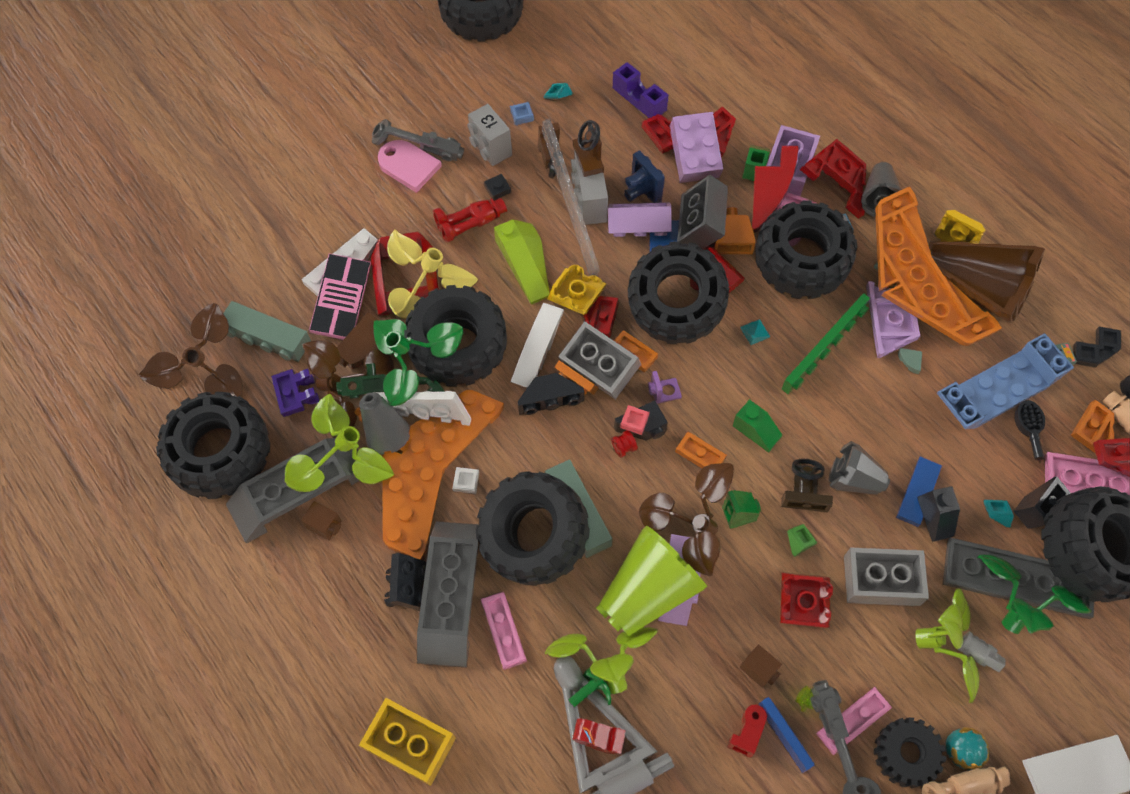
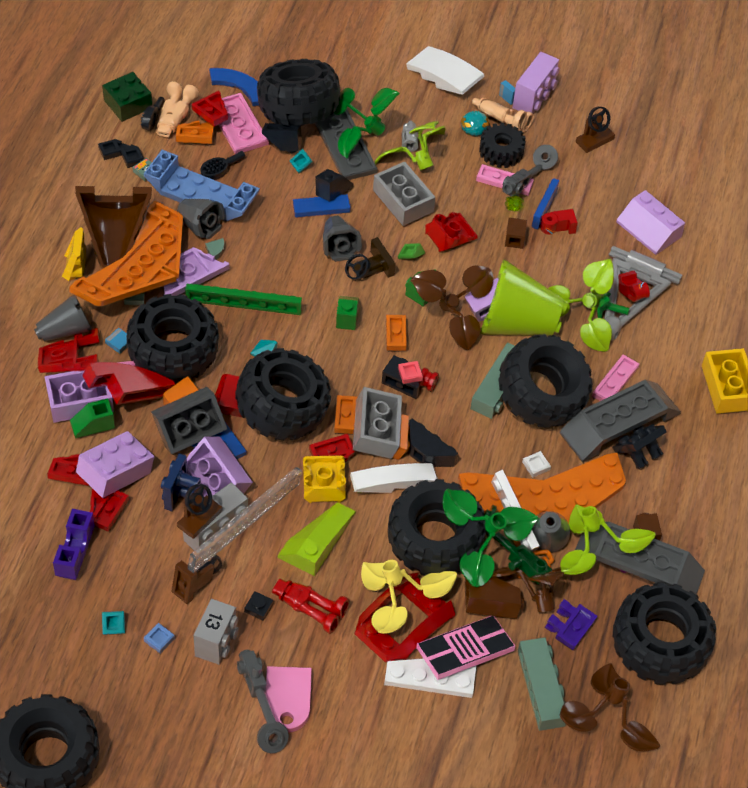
camera: 130 degrees left, 10 degrees down
(655, 388) = (366, 380): medium lavender bracket -> none
(957, 360) = (202, 216): none -> dark grey cone

